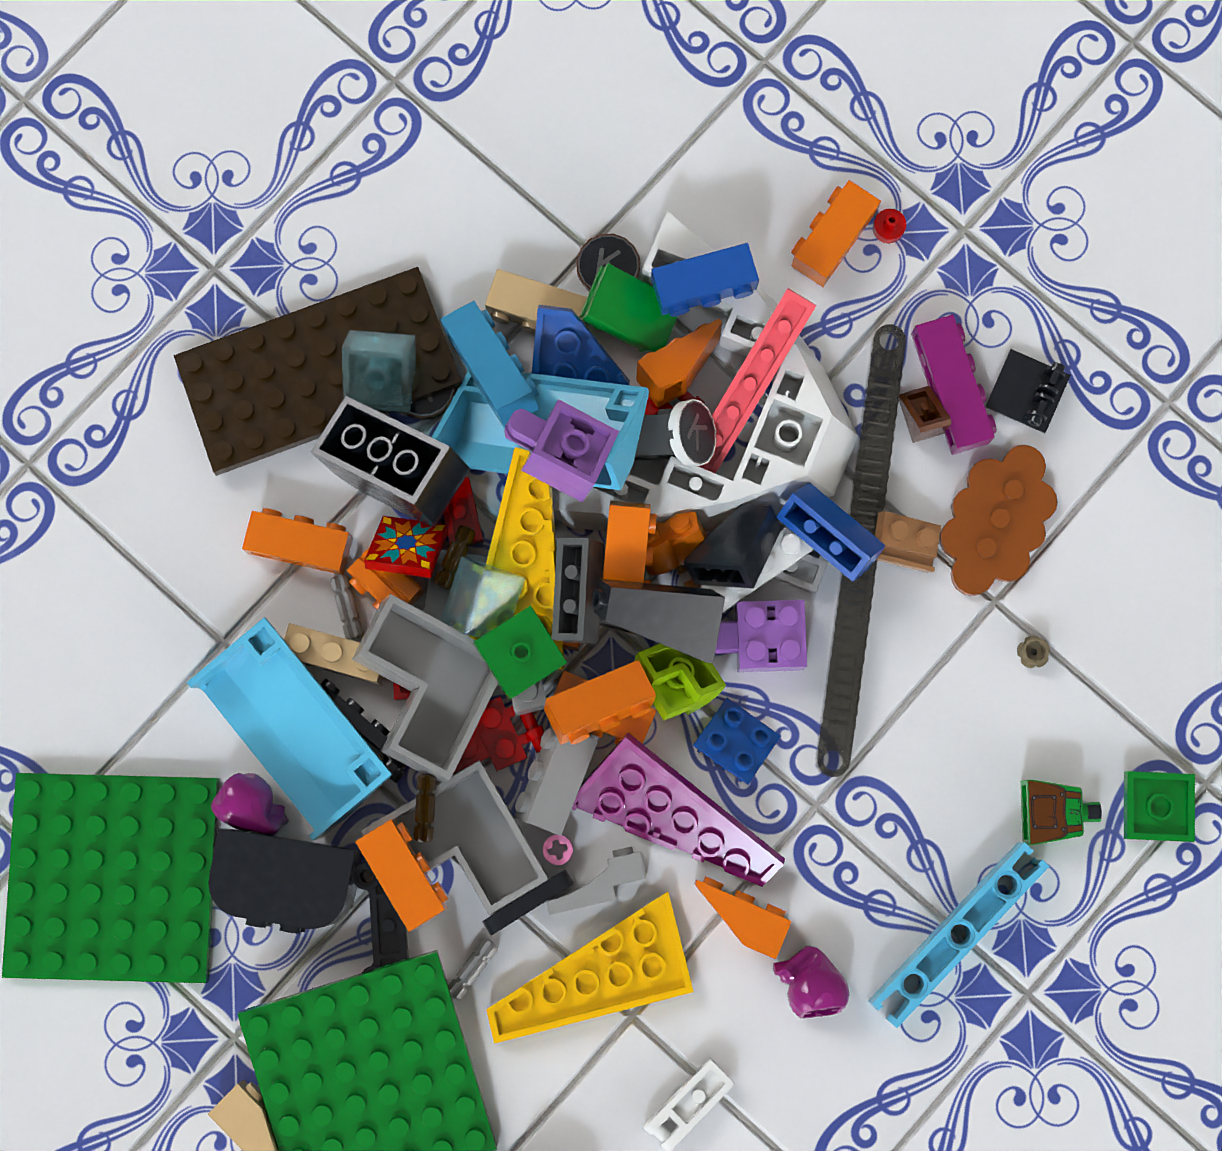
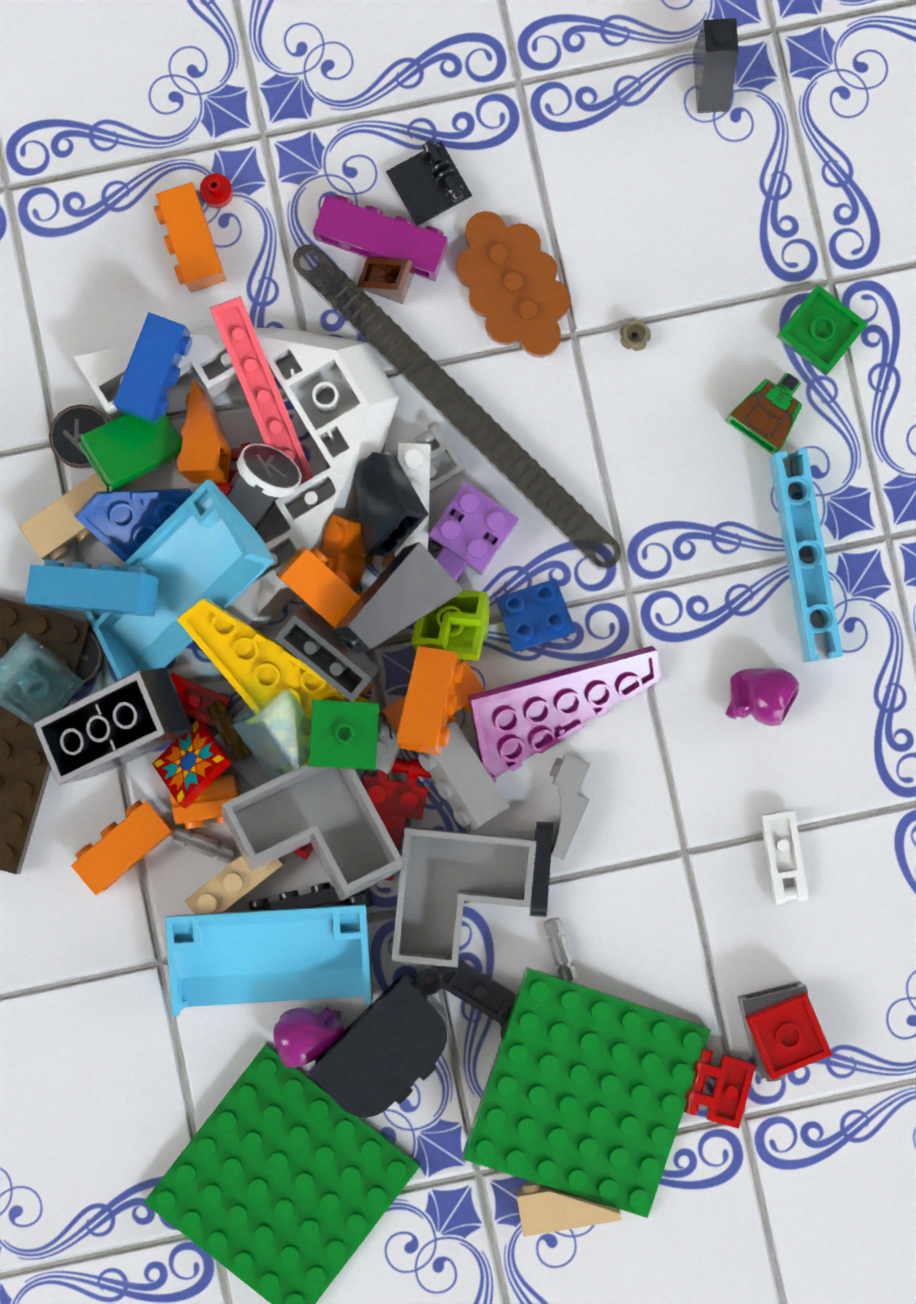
camera: 55 degrees left, 5 degrees up
(403, 874) = (450, 952): orange brick -> none
(425, 808) = (411, 897): dark brown axle -> none
(549, 844) = (521, 825): bright pink bush -> none
(564, 449) = (208, 580): medium lavender brick -> none
(616, 971) = (643, 837): yellow wing -> none
(752, 925) = (683, 708): orange slope -> none
(830, 531) = (427, 420): blue brick -> none
(907, 541) = (477, 368): medium nougat plate -> none

